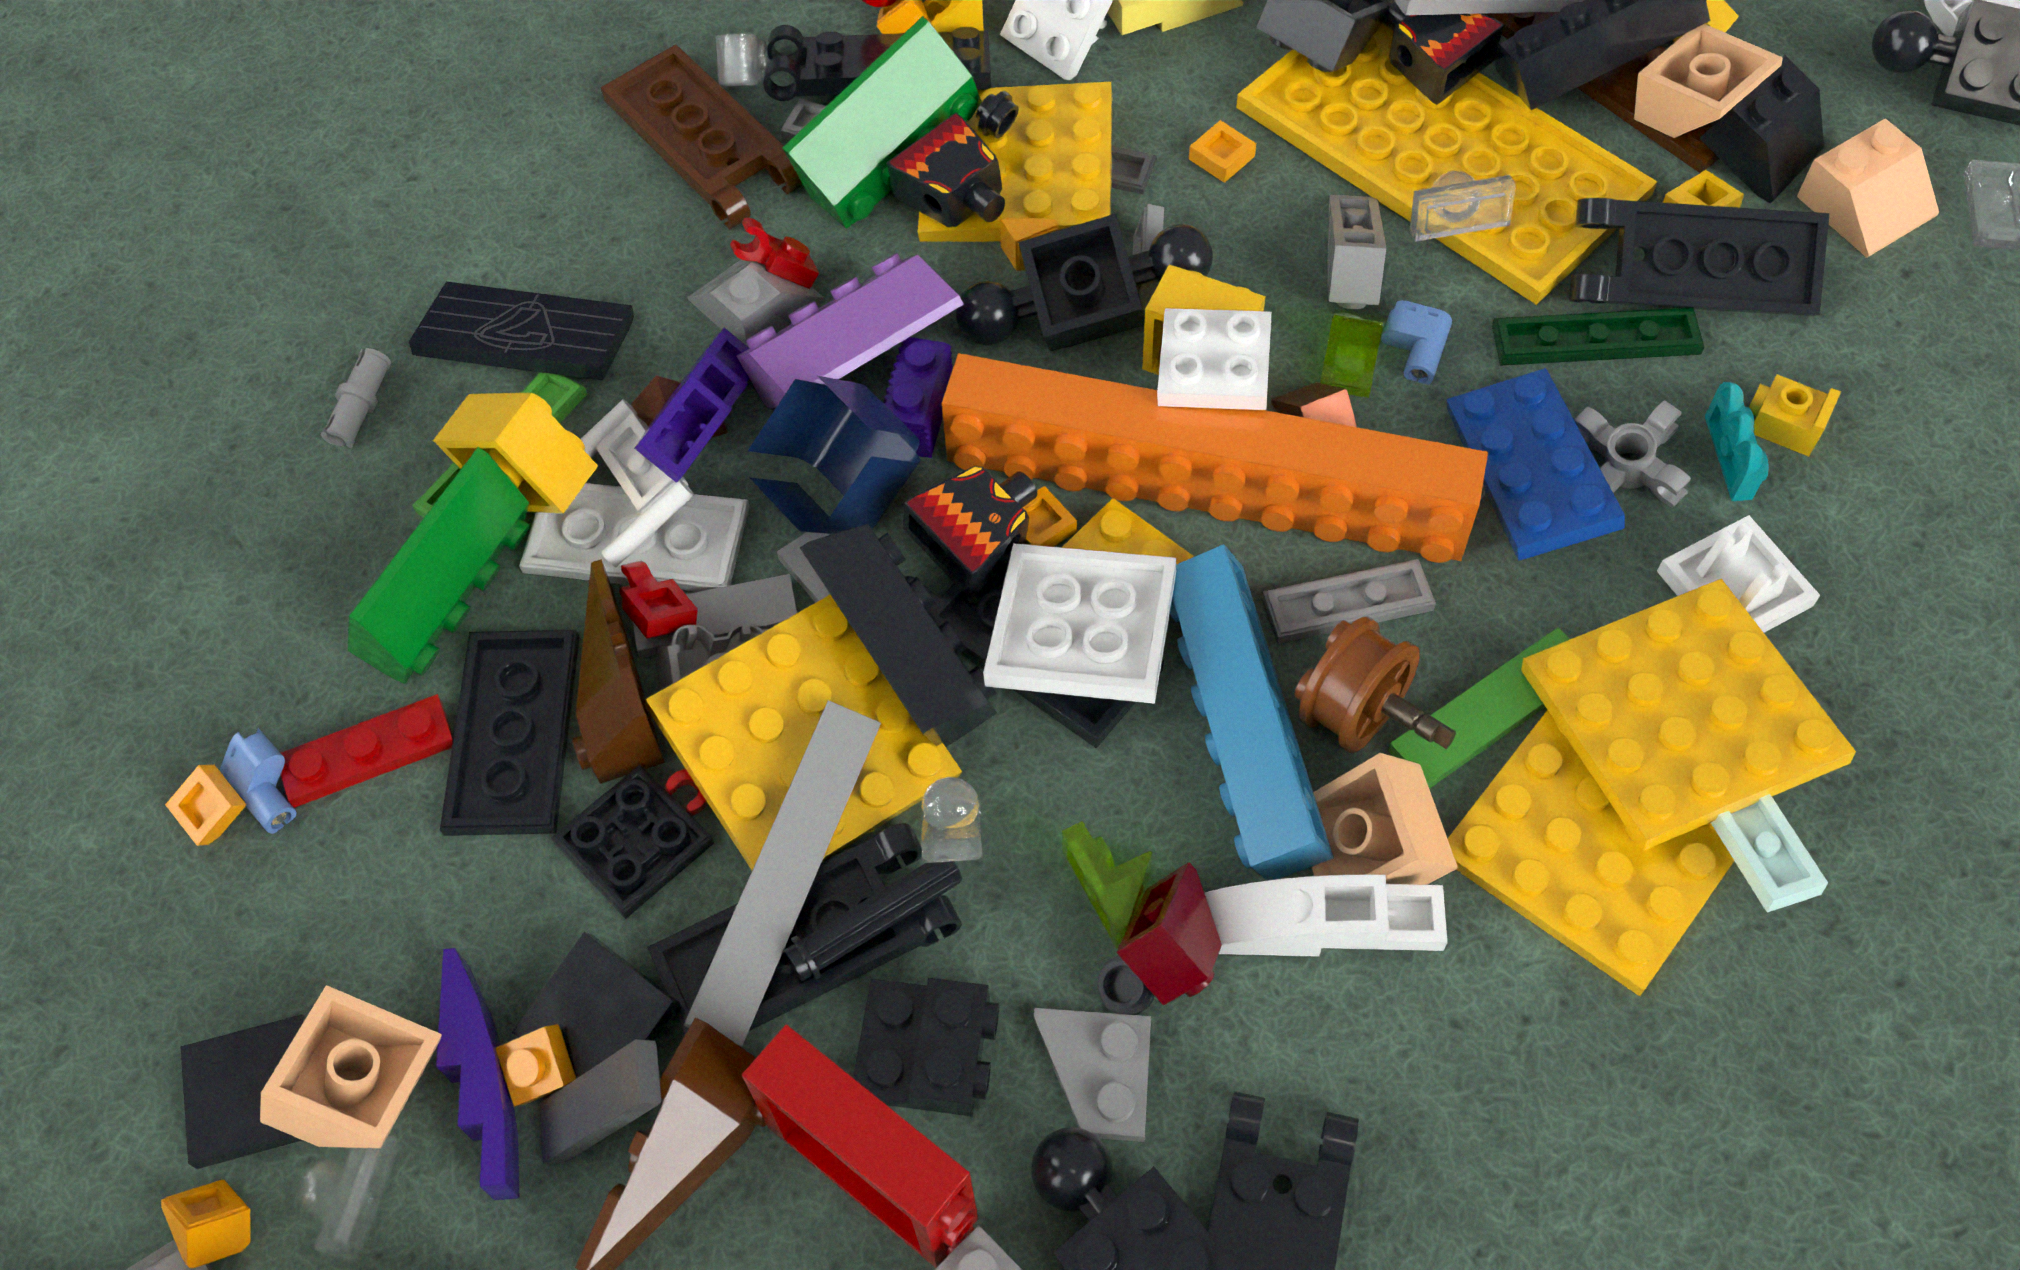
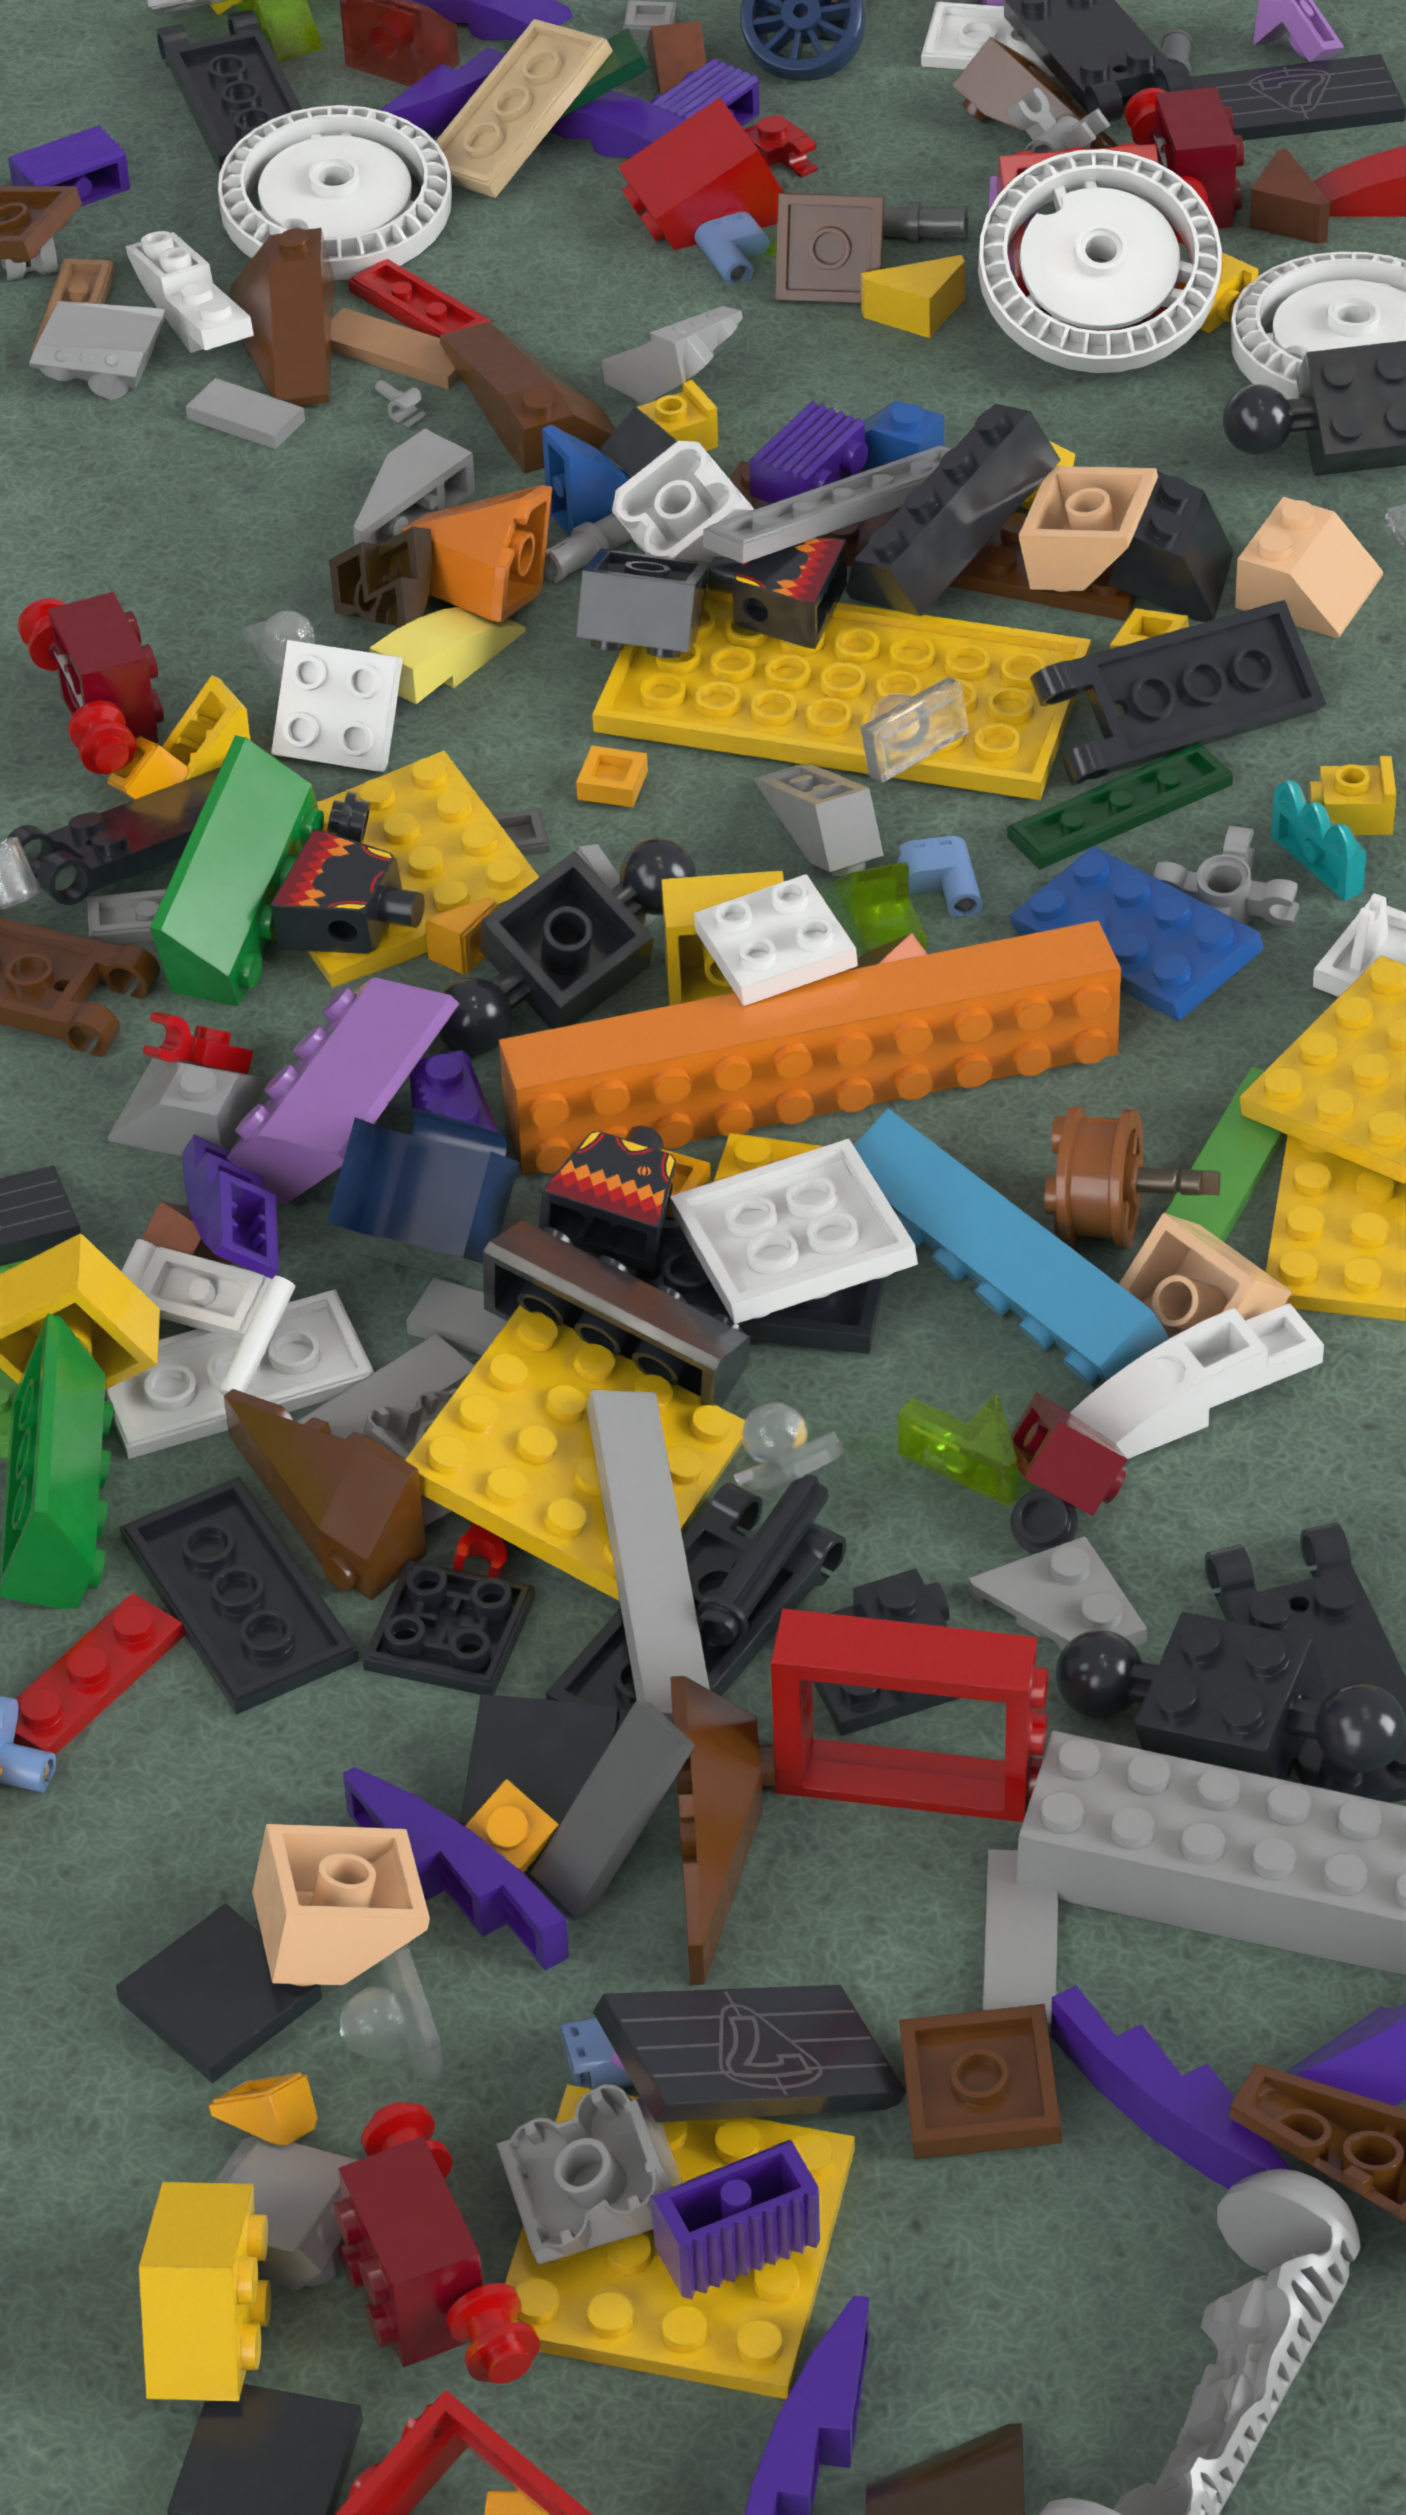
camera: 30 degrees left, 15 degrees down
(655, 605) = (329, 1401): red plate -> none
(1373, 593) = (1024, 1131): light grey tile -> none

